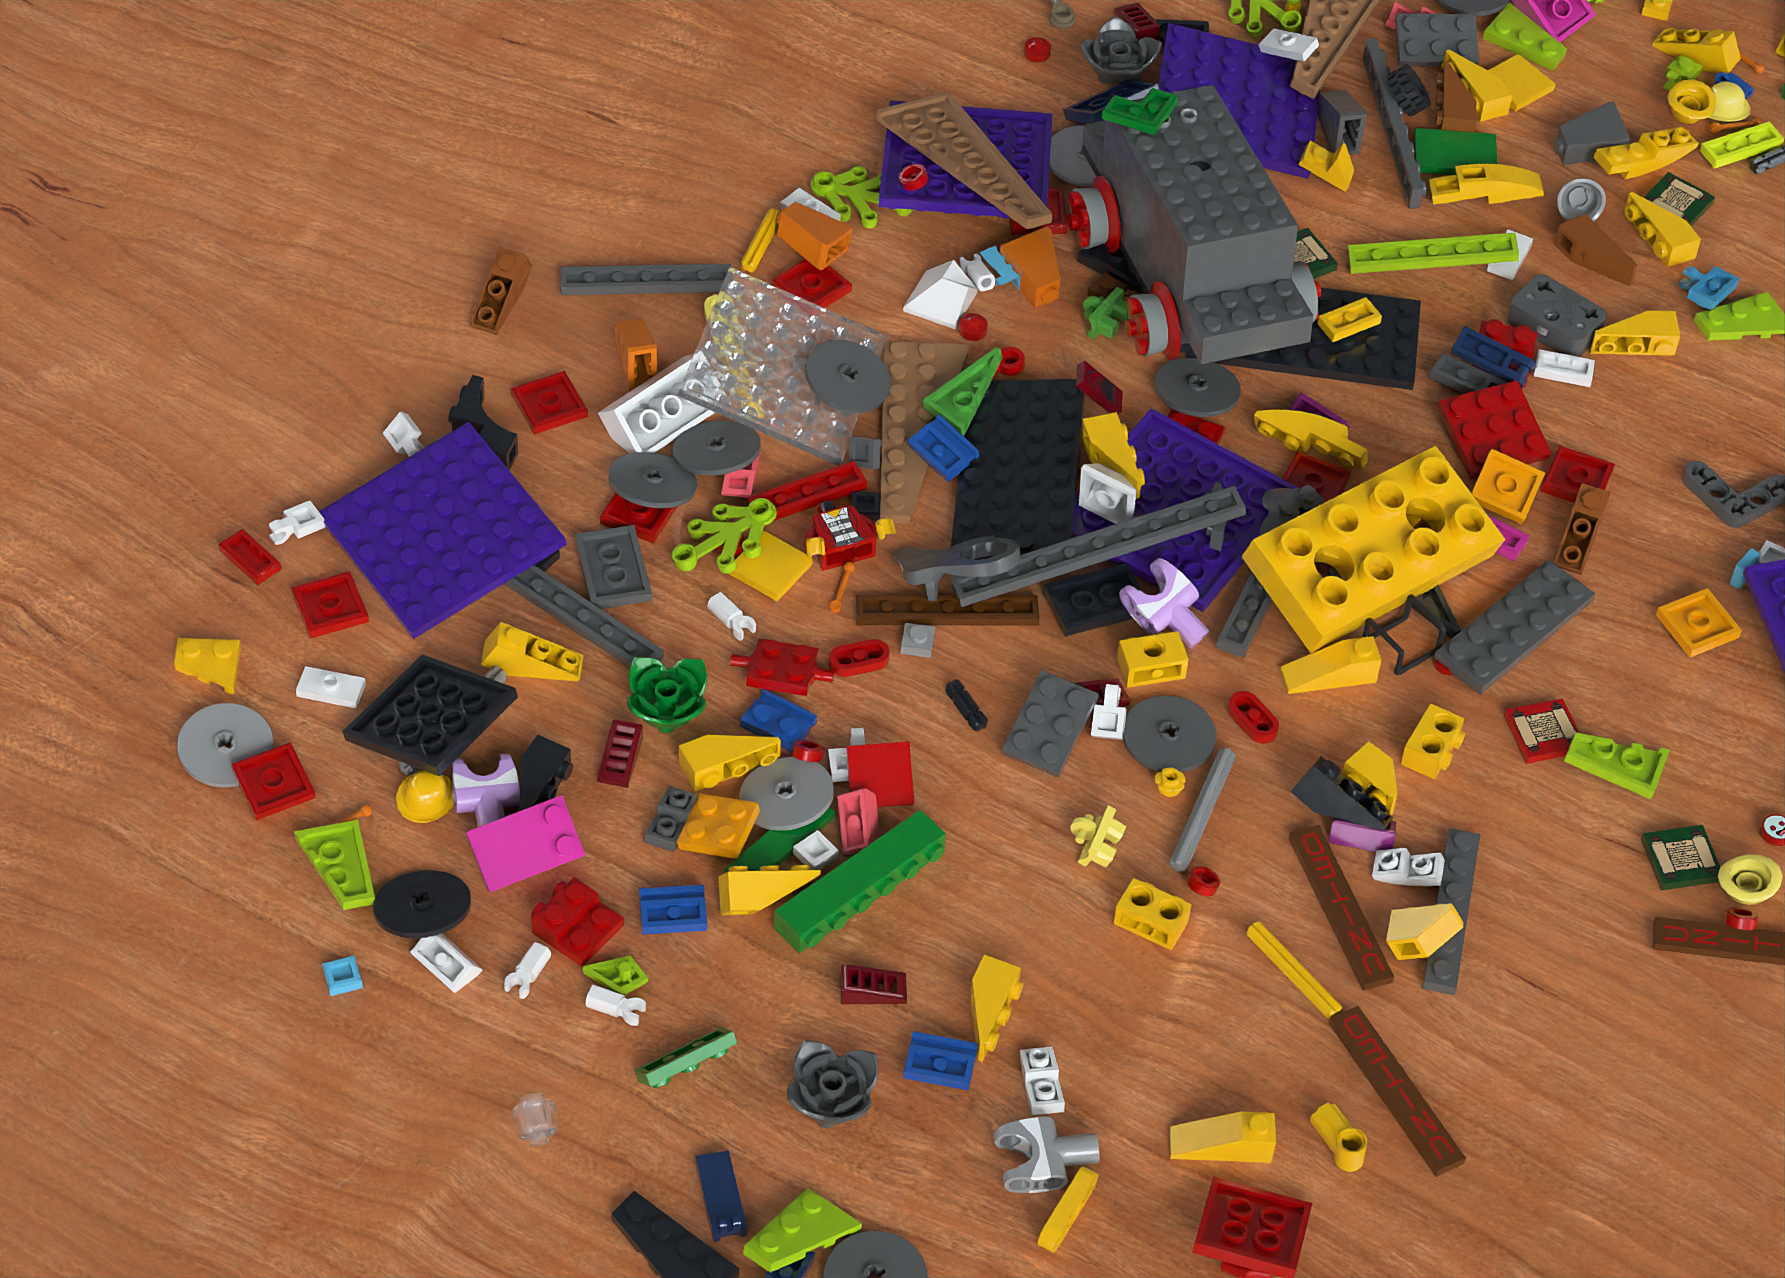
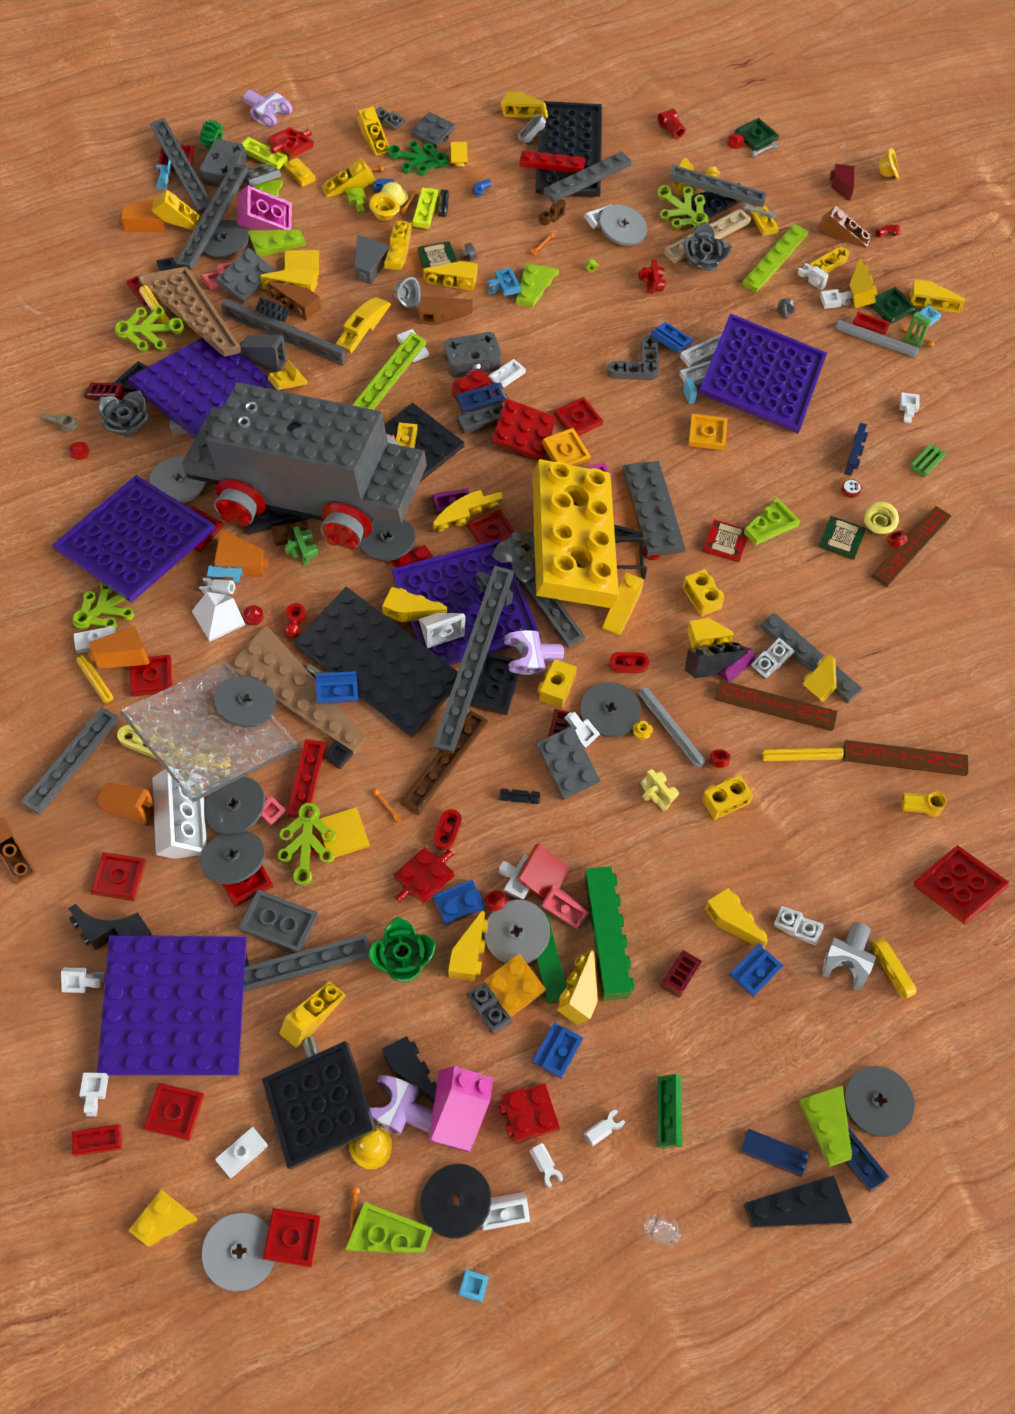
camera: 55 degrees left, 10 degrees up
(617, 975) = (583, 1113): lime piece -> none
(625, 735) = (416, 989): dark red slope -> none
(730, 615) = (363, 878): white bar -> none
(815, 851) = (569, 943): white plate -> none
(843, 535) = (354, 779): torso -> none
(847, 1076) = (744, 1024): dark grey brick -> none
(865, 452) = (304, 729): dark grey tile -> none
(913, 177) = (132, 570): red tile -> none
(918, 640) = (455, 790): light grey plate -> none
(931, 565) = (417, 749): dark grey animal -> none
(955, 142) = (116, 534): medium nougat wing -> none
(962, 395) = (306, 653): bright green wing -> none
(1091, 108) = (155, 441): dark blue plate -> none
(1099, 388) = (355, 584): dark red tile -> none
(1142, 116) = (235, 426): green tile -> none
(1226, 1138) = (892, 859): yellow slope -> none
(1288, 44) = (198, 336): white plate -> none
(1444, 149) = (325, 319): green tile -> none
(1582, 528) = (615, 437): dark orange slope -> none
(1639, 335) = (515, 325): yellow slope -> none
(1719, 226) = (470, 252): none -> dark grey tile

